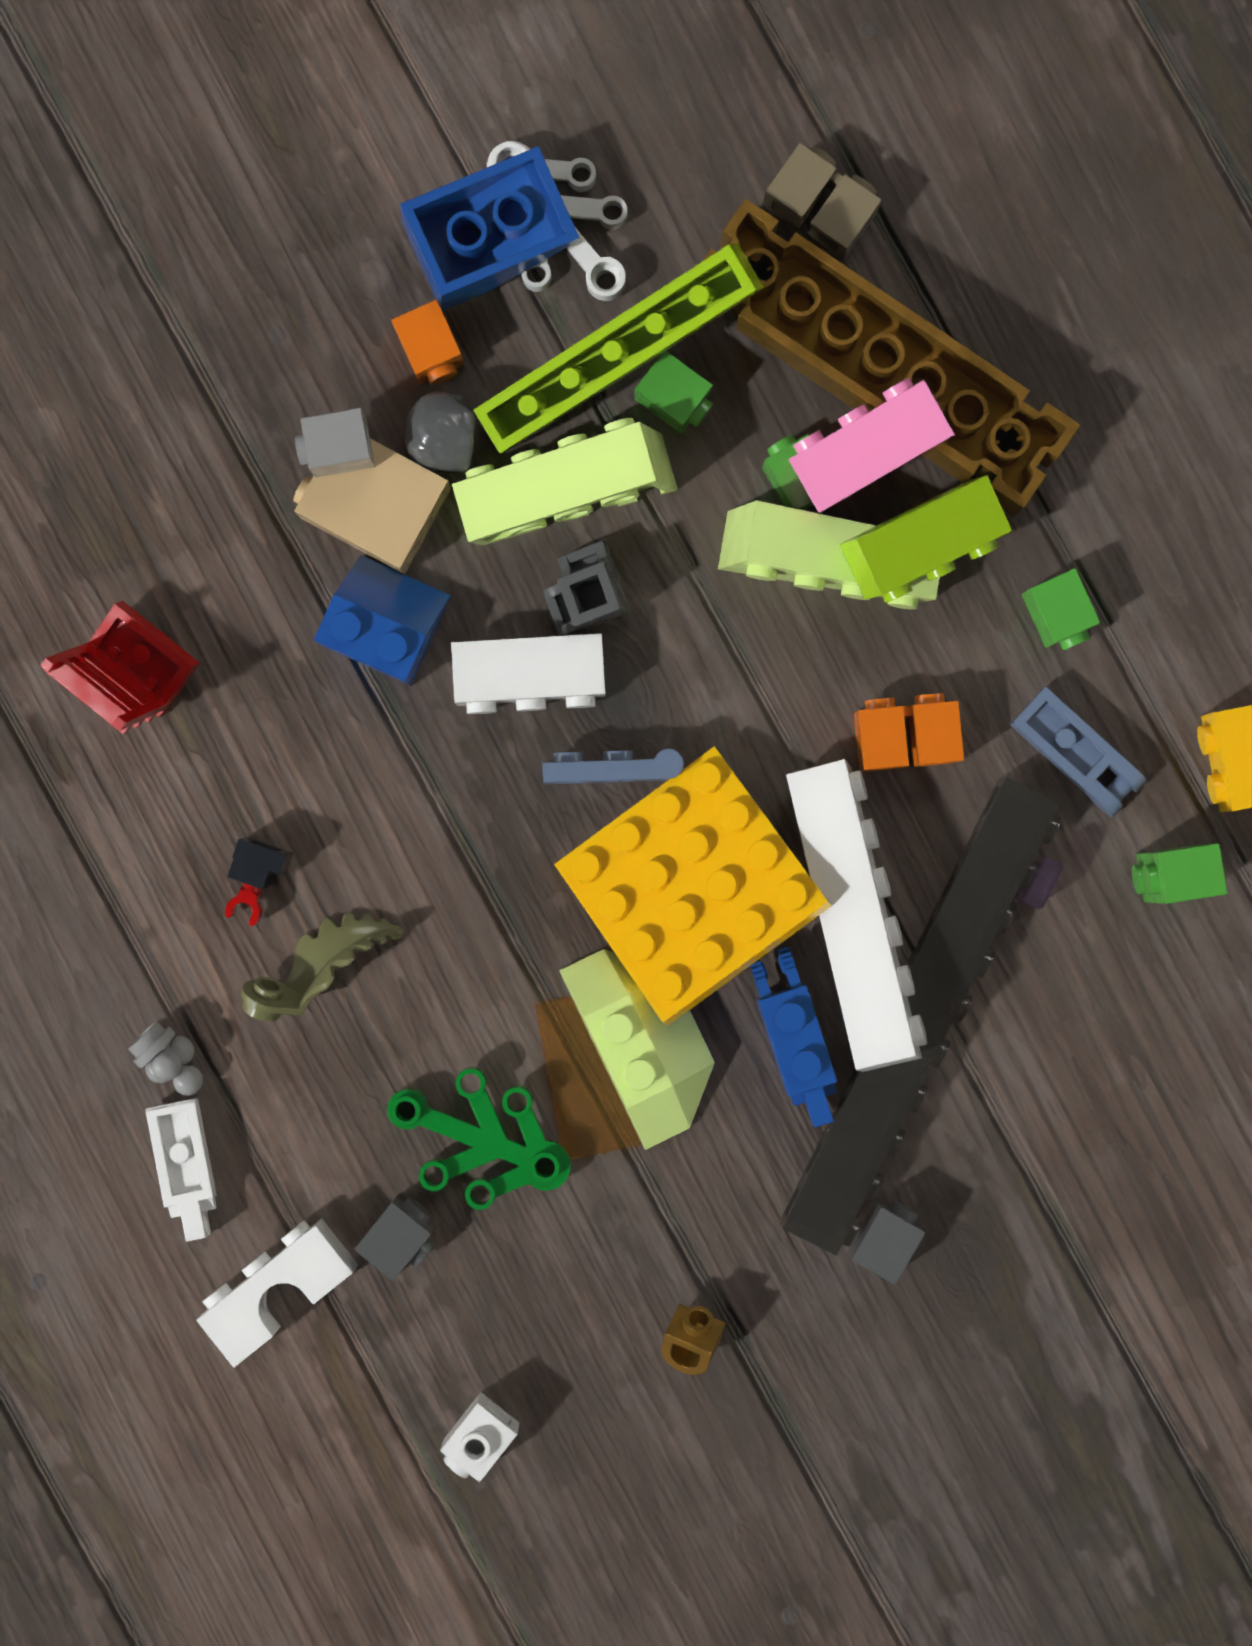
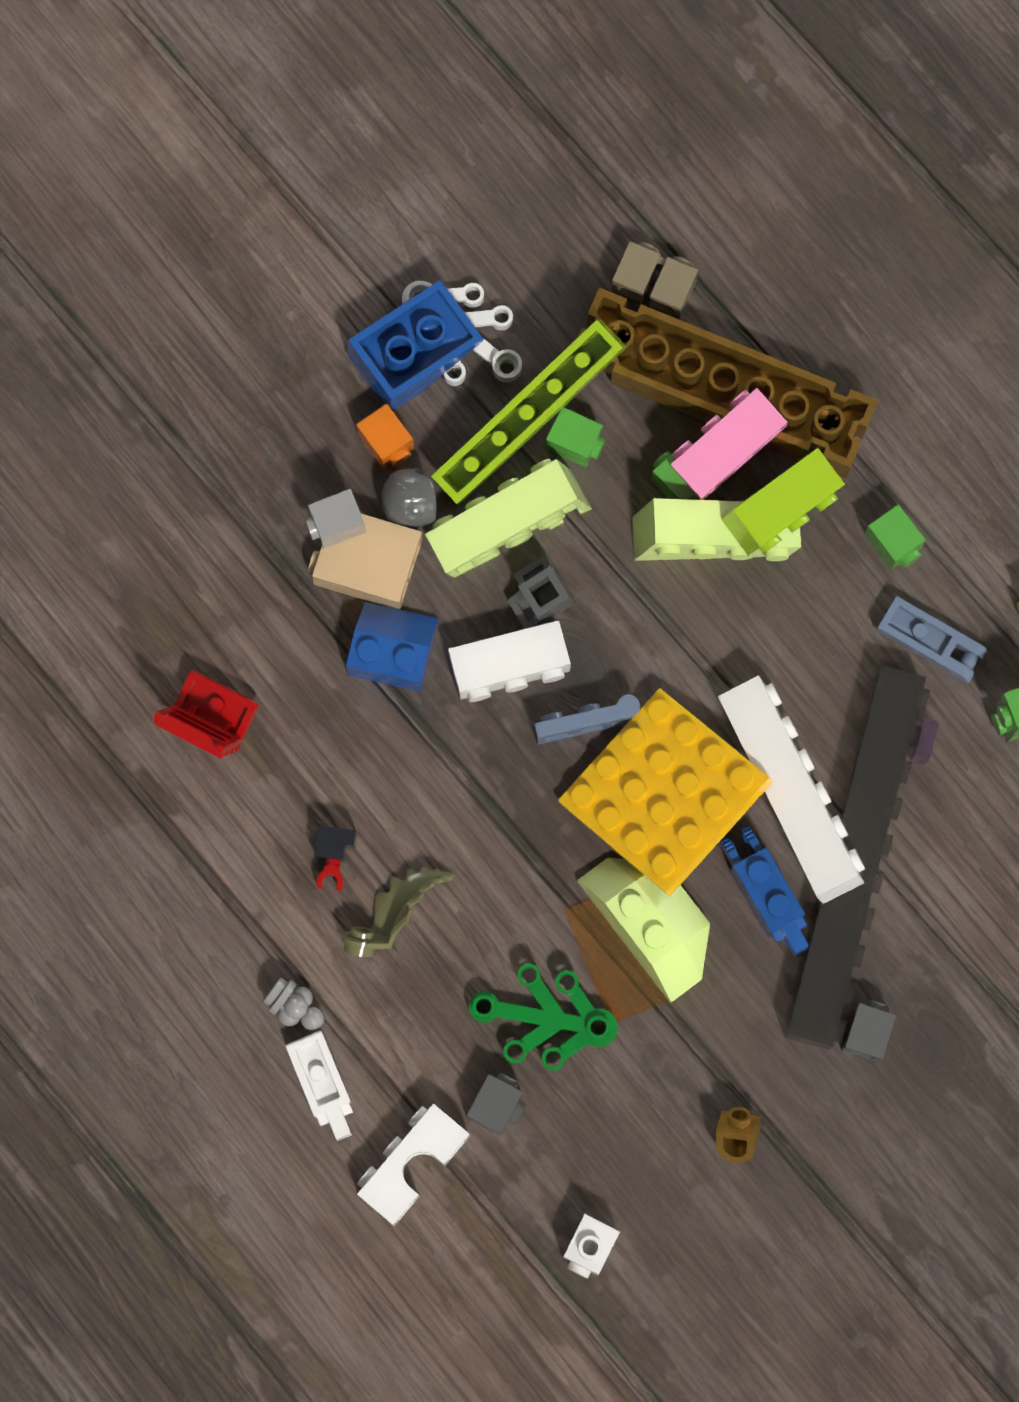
camera: 15 degrees left, 10 degrees down
(932, 727) = (820, 646): orange piece -> none

